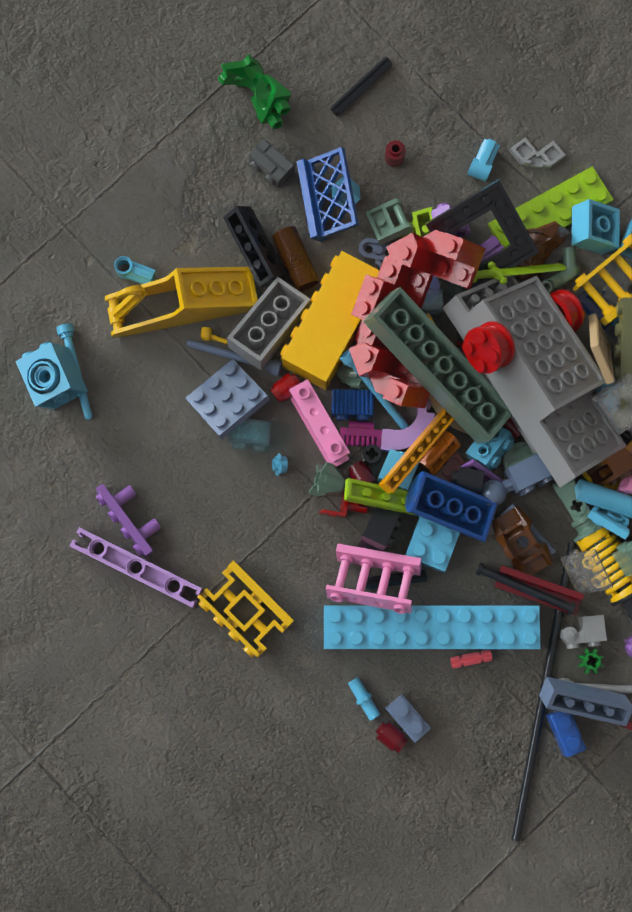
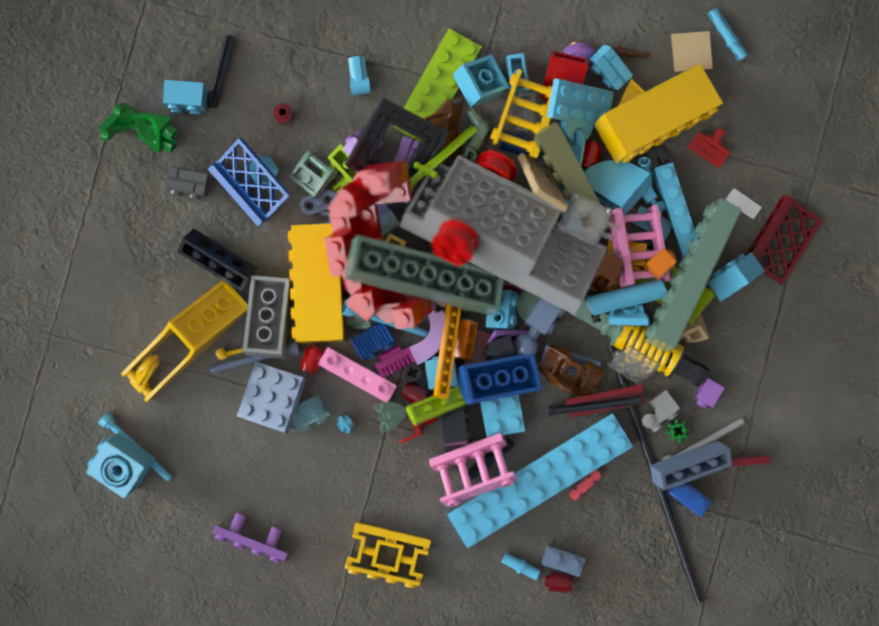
camera: 35 degrees left, 5 degrees up
(123, 562) = (268, 574): lavender piece -> none
(136, 271) = (134, 338): medium azure piece -> none
(295, 255) = (251, 247): reddish brown piece -> none
(316, 86) = (185, 96): none -> medium azure brick
(529, 157) = (393, 50): light grey tile -> none

